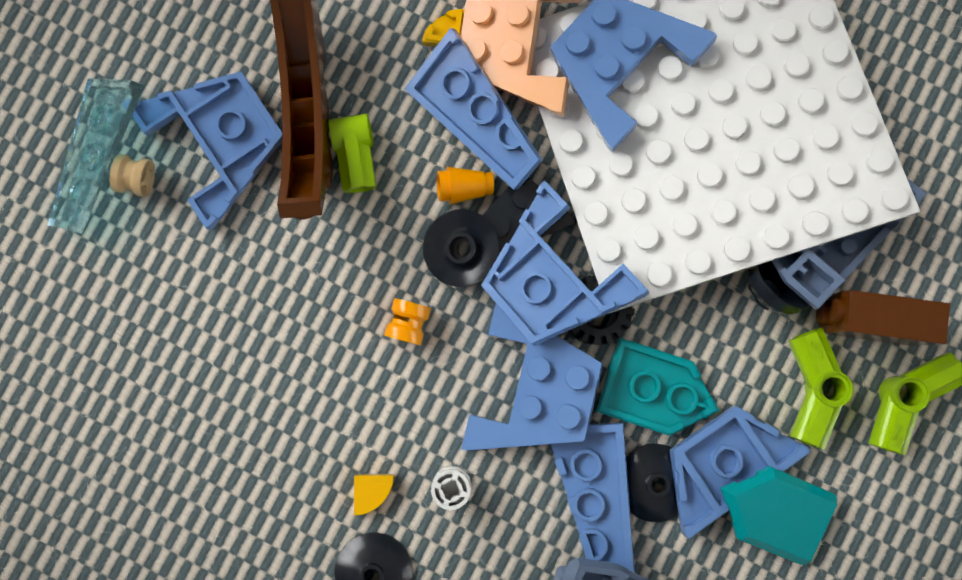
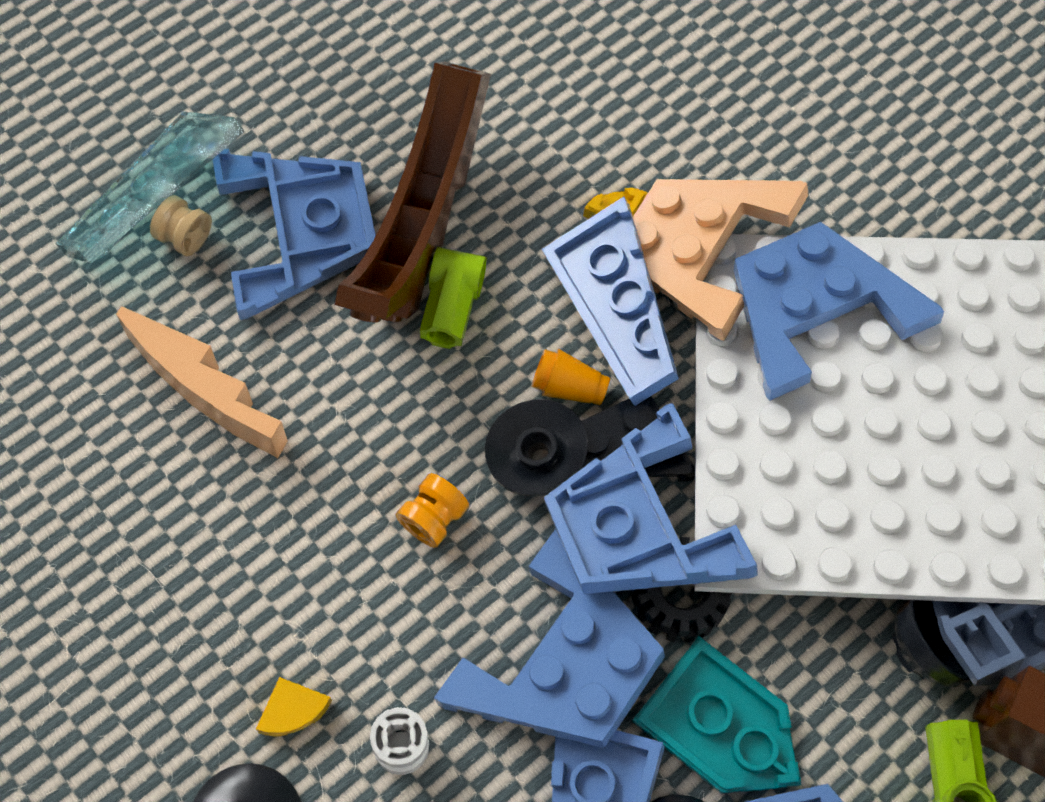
camera: 15 degrees right, 20 degrees down
(194, 286) = (194, 374): none -> light nougat slope

